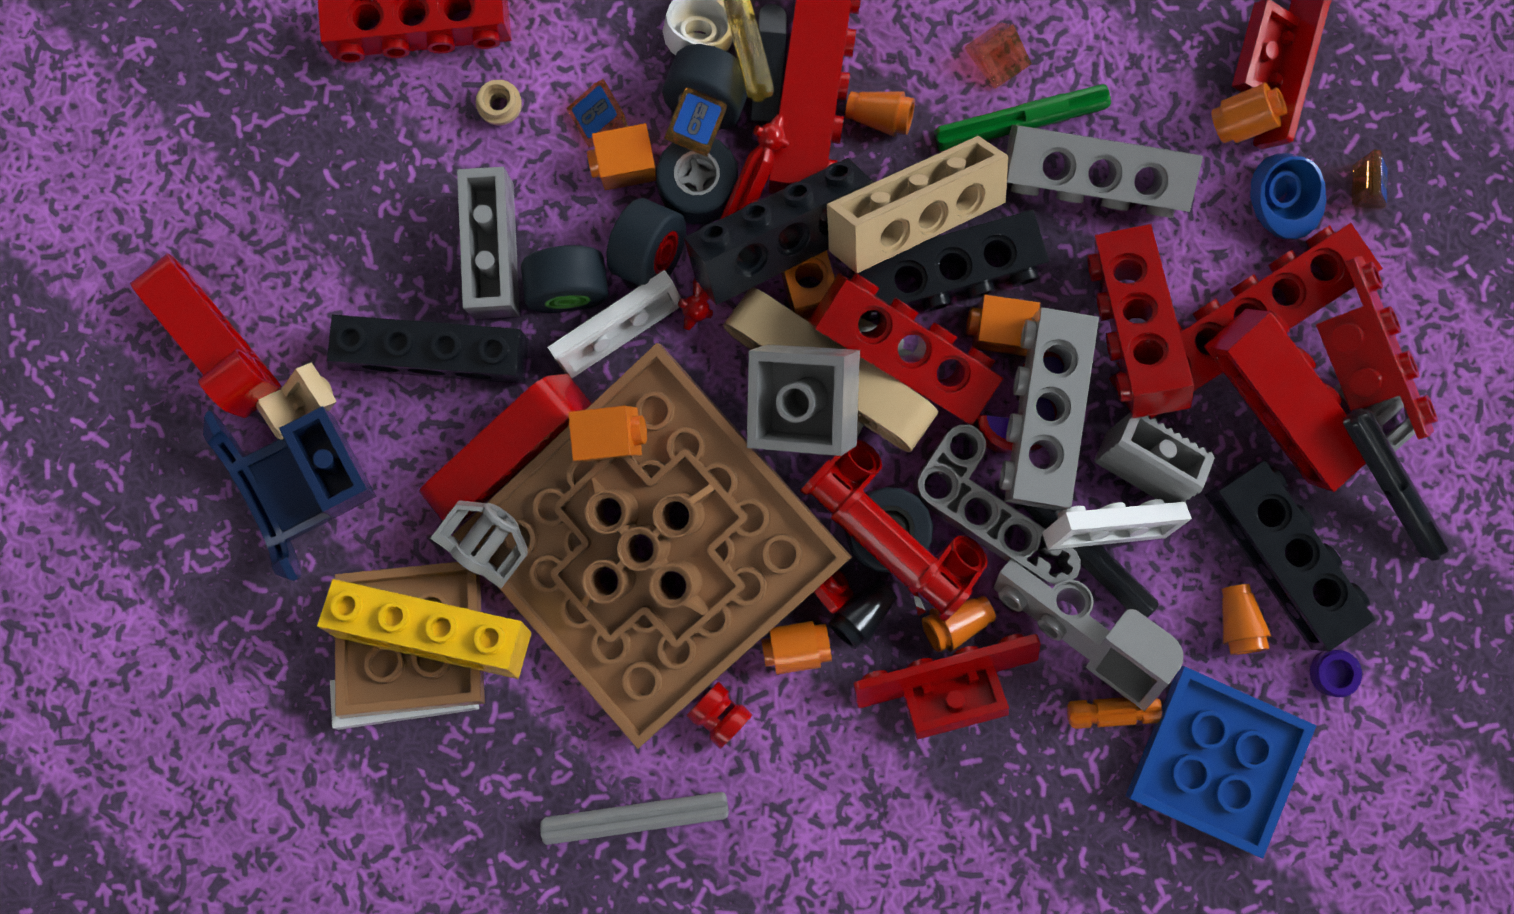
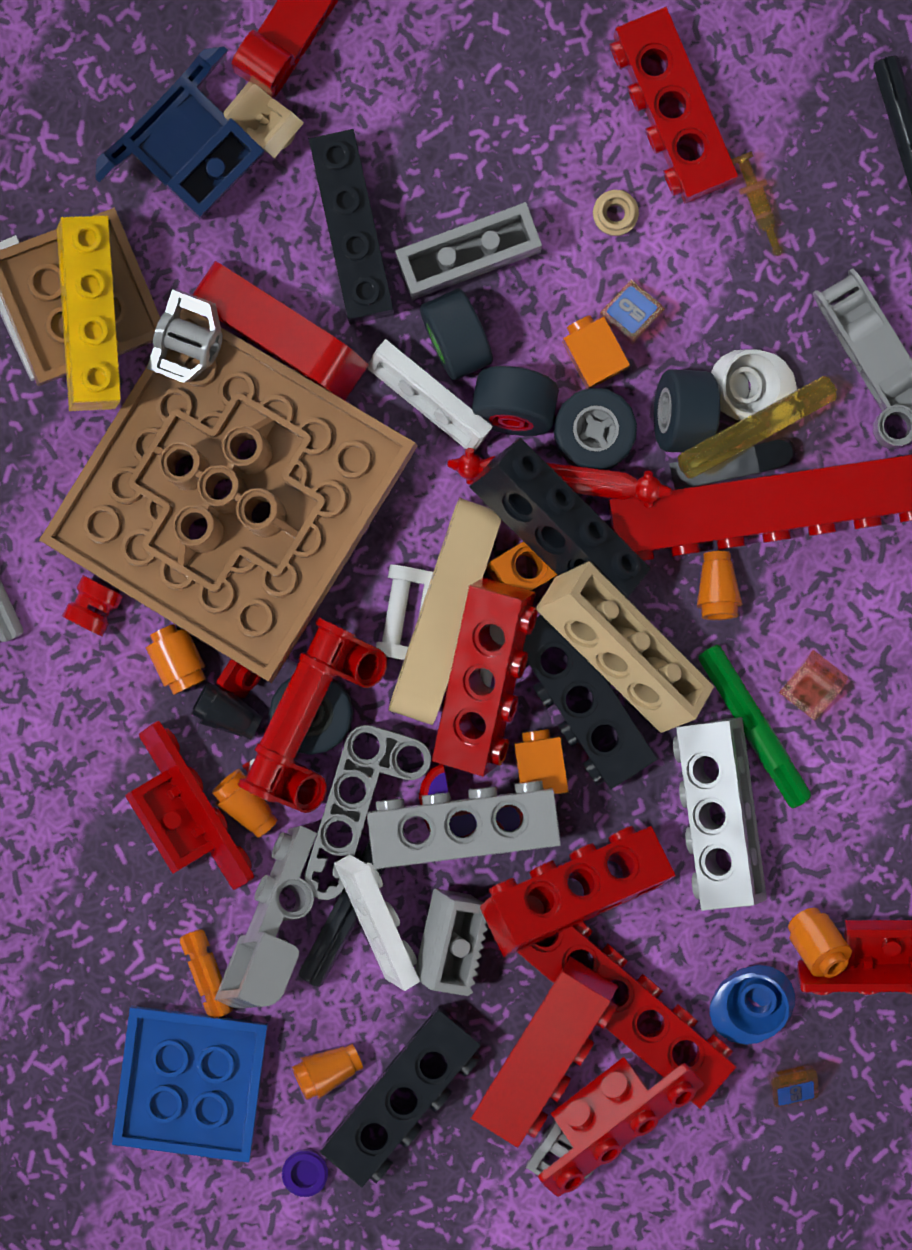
camera: 80 degrees right, 5 degrees up
(606, 433) = (315, 423): orange brick -> none
(696, 121) = (642, 413): slope -> none
(803, 399) = (401, 594): light grey brick -> none
(1395, 483) = (494, 1175): black axle -> none

